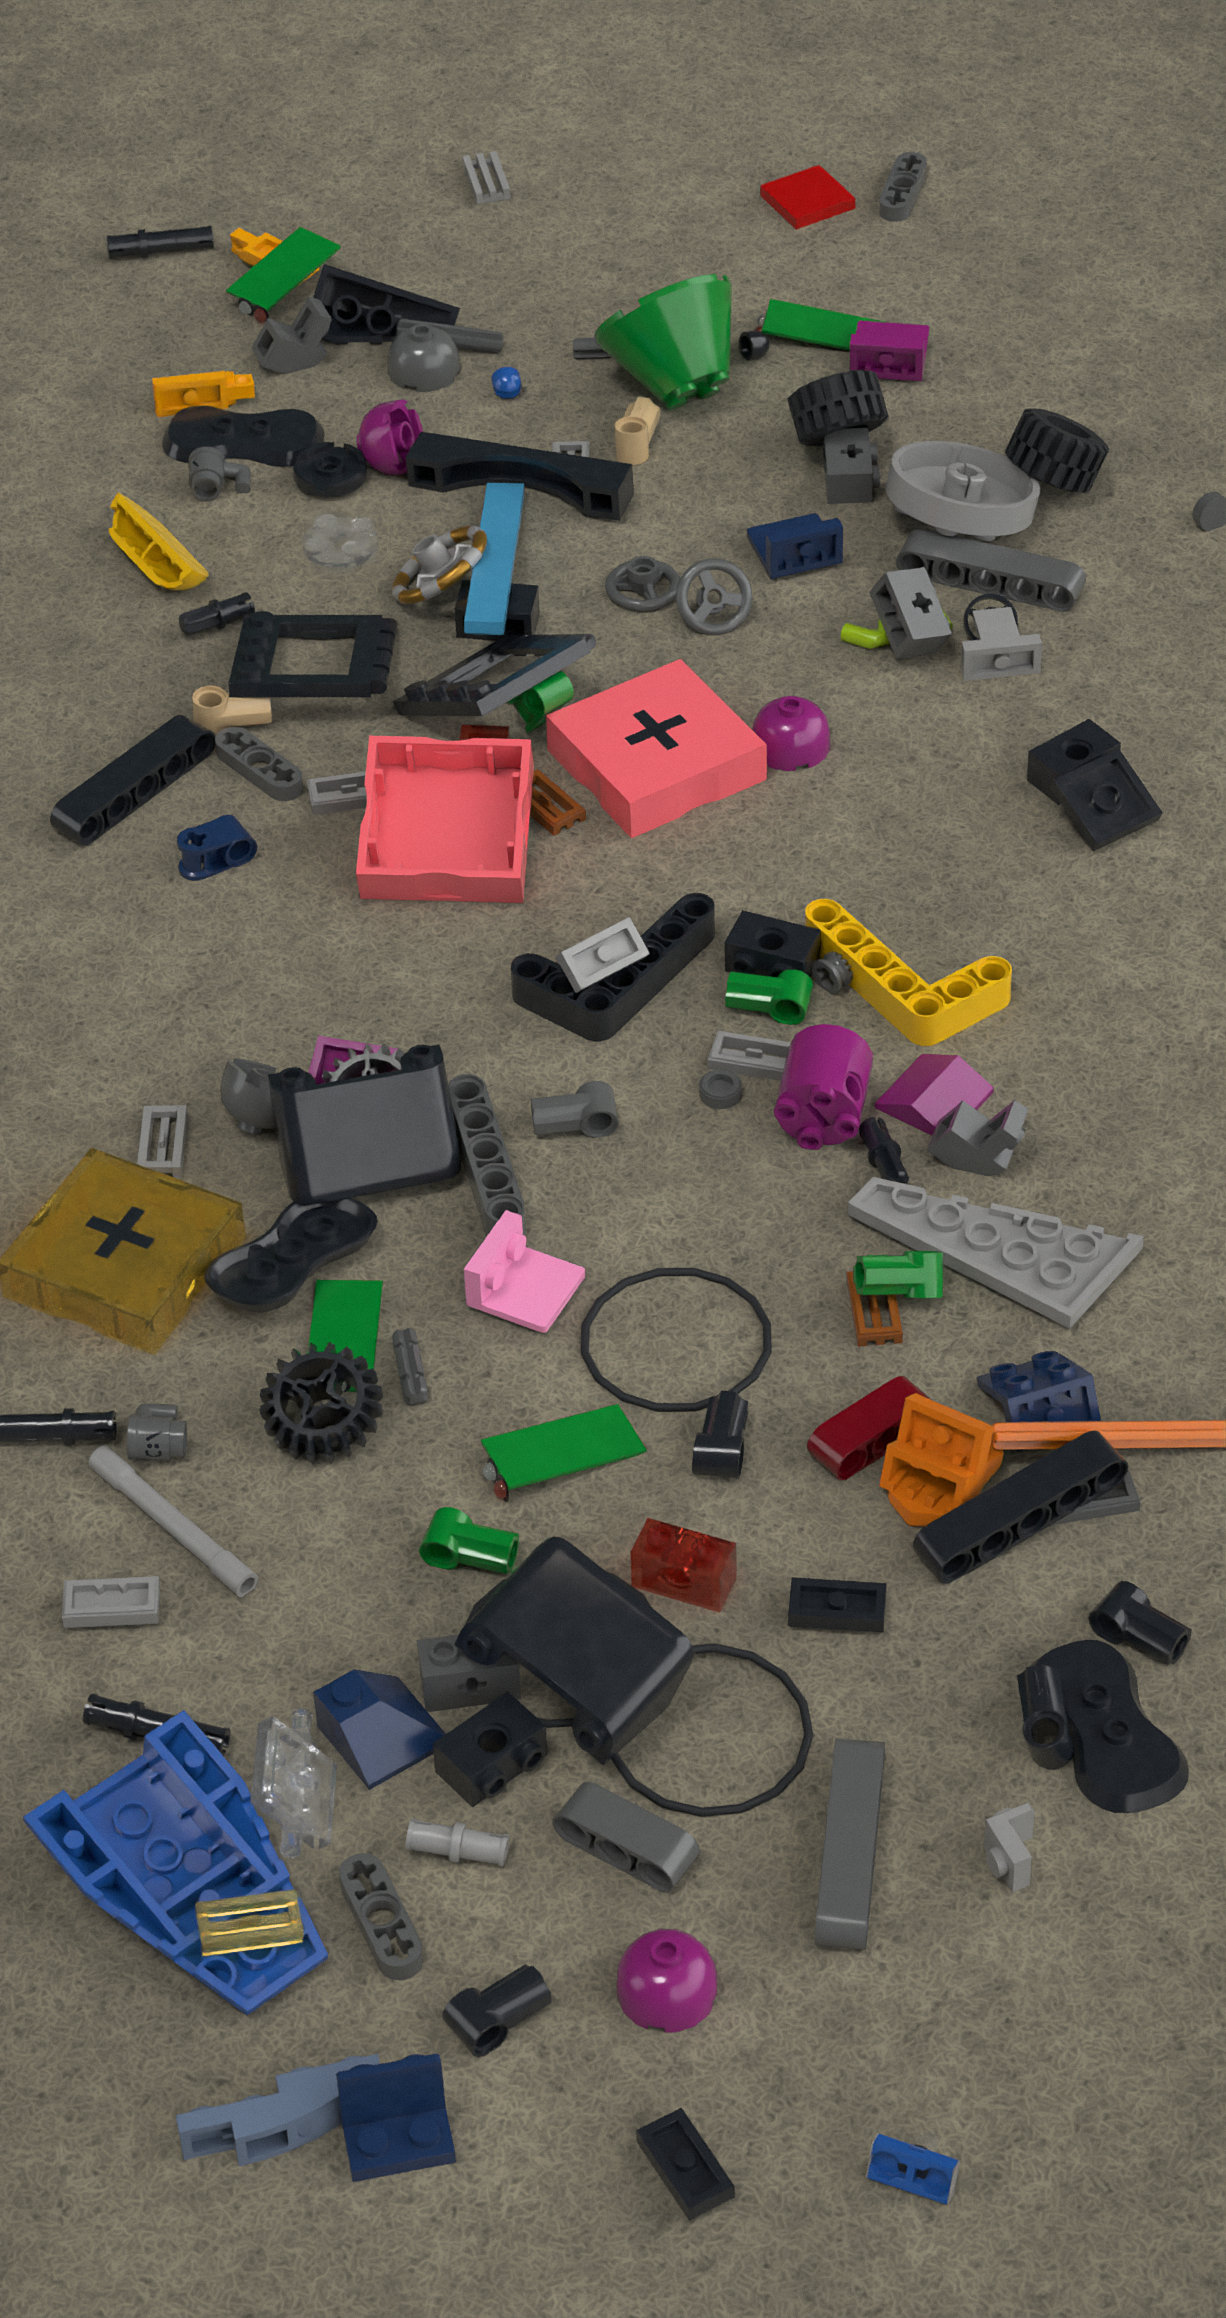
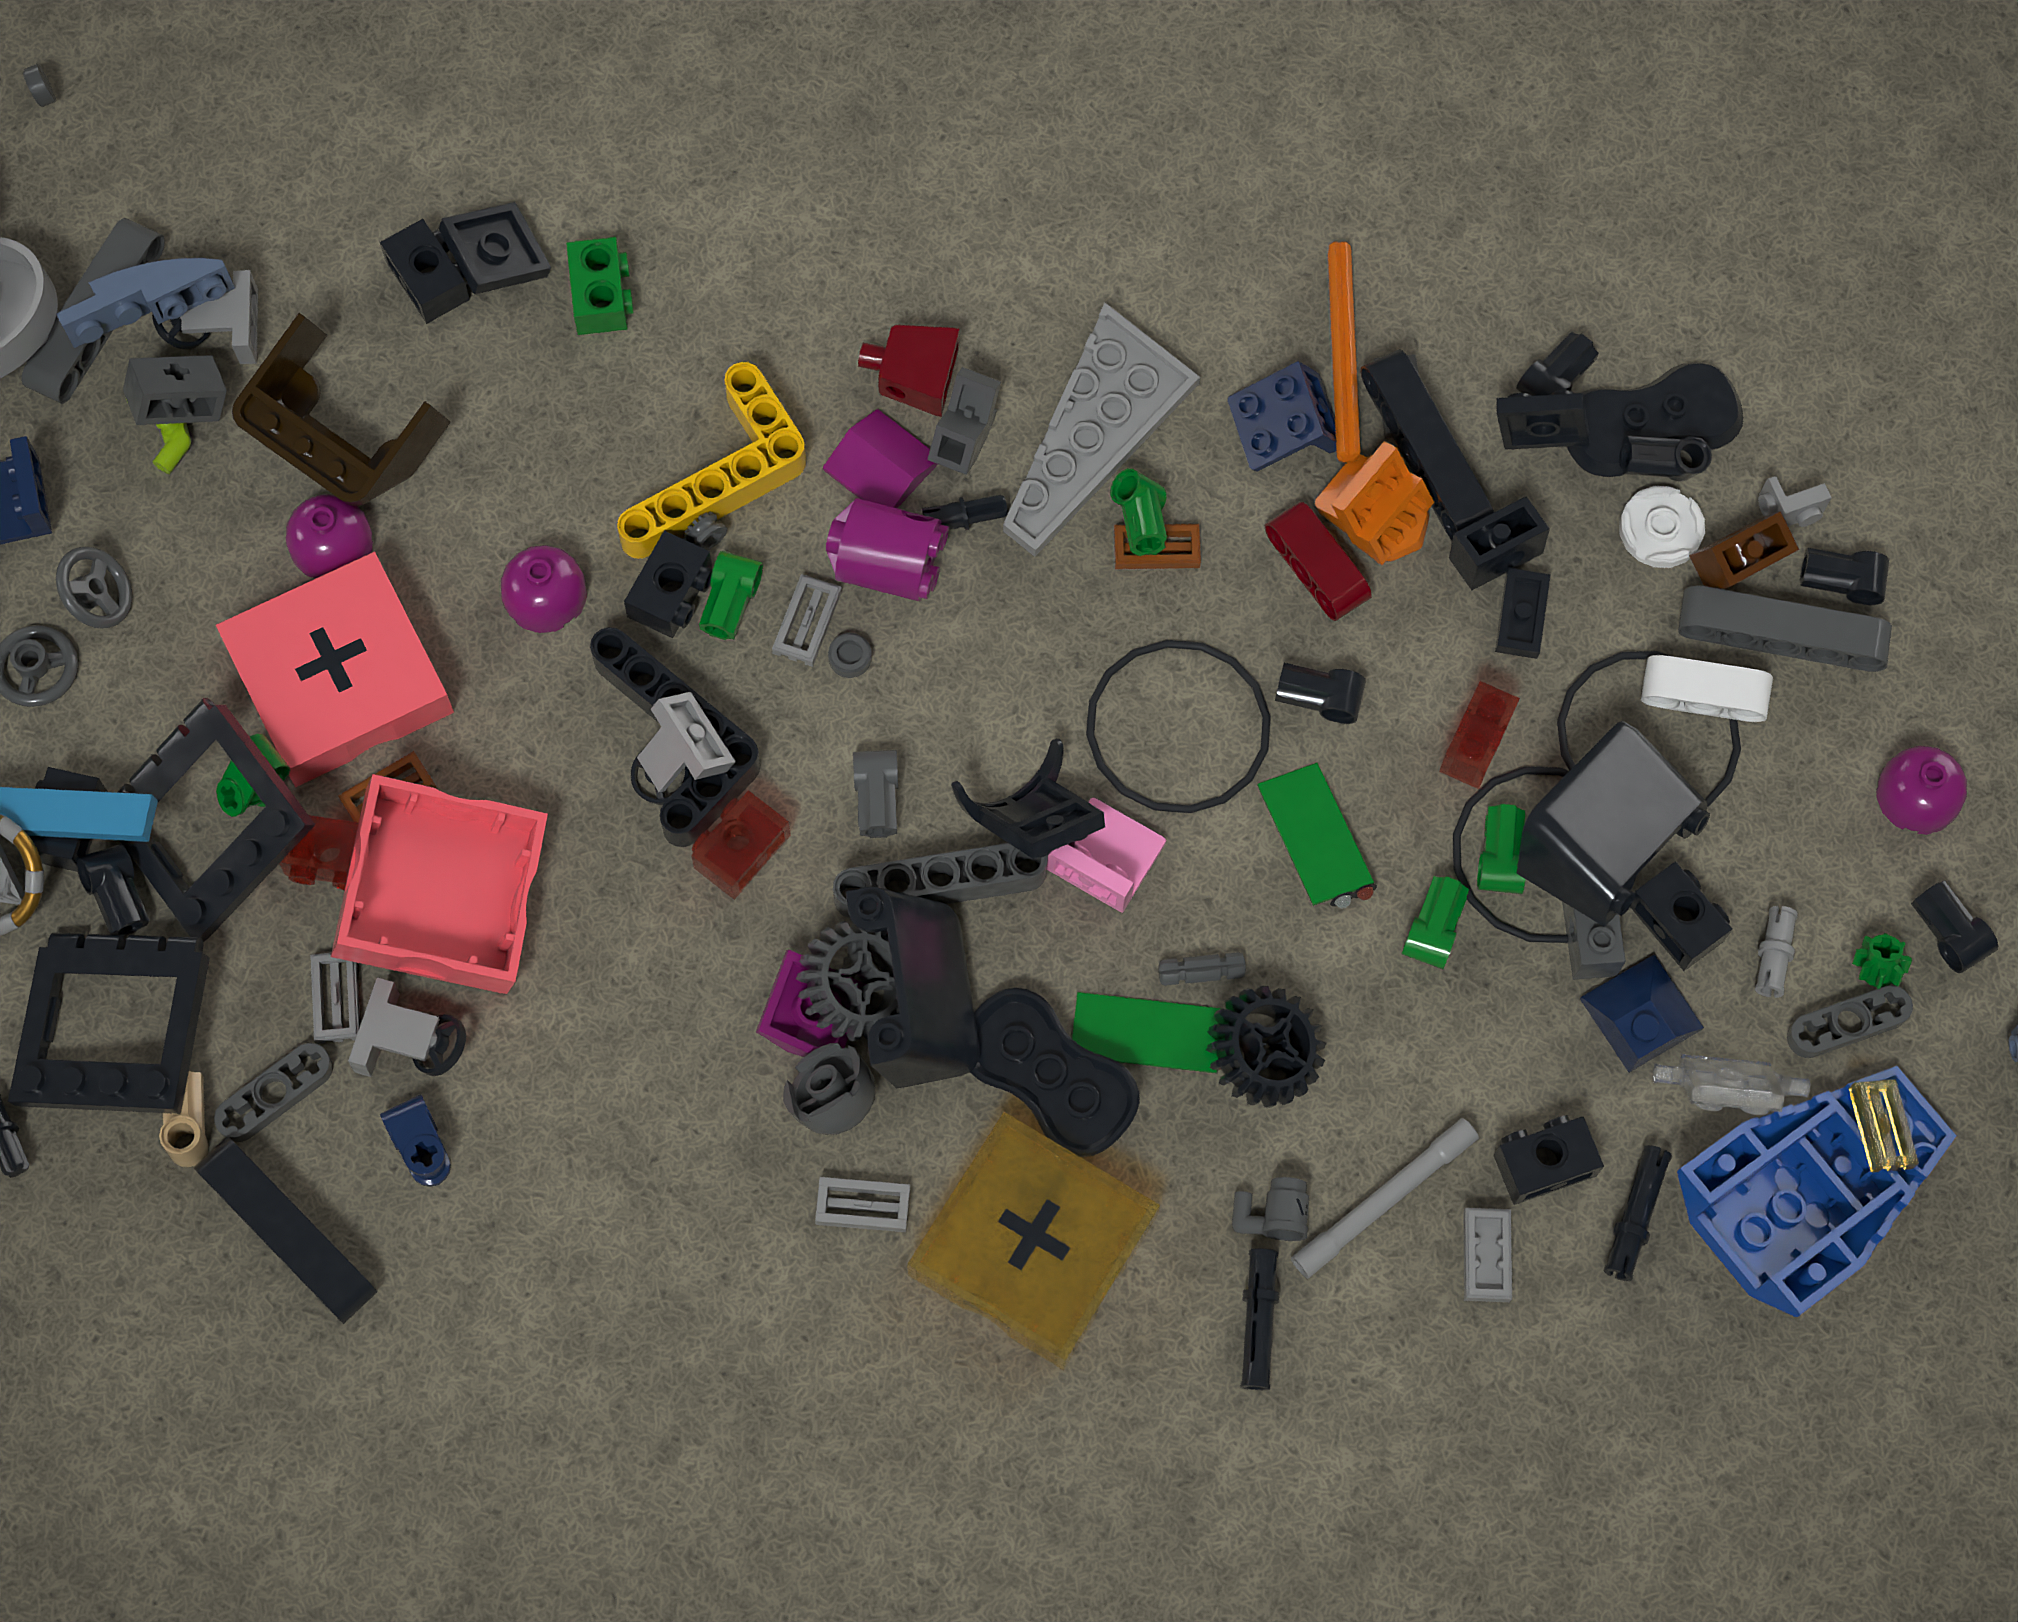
camera: 90 degrees left, 25 degrees up
(211, 1642) = (1528, 1177): none -> black brick
(309, 816) = (403, 1033): none -> light grey piece
(440, 643) = (110, 879): none -> black piece
(448, 1933) = (1882, 961): none -> green gear
(510, 1022) = (732, 868): none -> clear red brick
(544, 1205) = (1039, 814): none -> black piece
(626, 1836) = (1775, 809): dark grey beam -> none
(759, 872) = (543, 588): none -> magenta cylinder
(763, 1764) = (1707, 688): none -> white beam
(884, 692) = (277, 412): none -> dark brown windscreen
(912, 1565) = (1499, 543): none -> black brick
(928, 1908) = (1856, 575): none -> black piece
(933, 1787) = (1744, 552): none -> reddish brown brick
(962, 1746) = (1654, 538): none -> white tile
(994, 567) = (157, 287): none -> sand blue slope
(1051, 1098) = (914, 365): none -> dark red torso
(1061, 1586) = (1543, 420): none -> black plate
(1082, 874) = (593, 286): none -> green brick

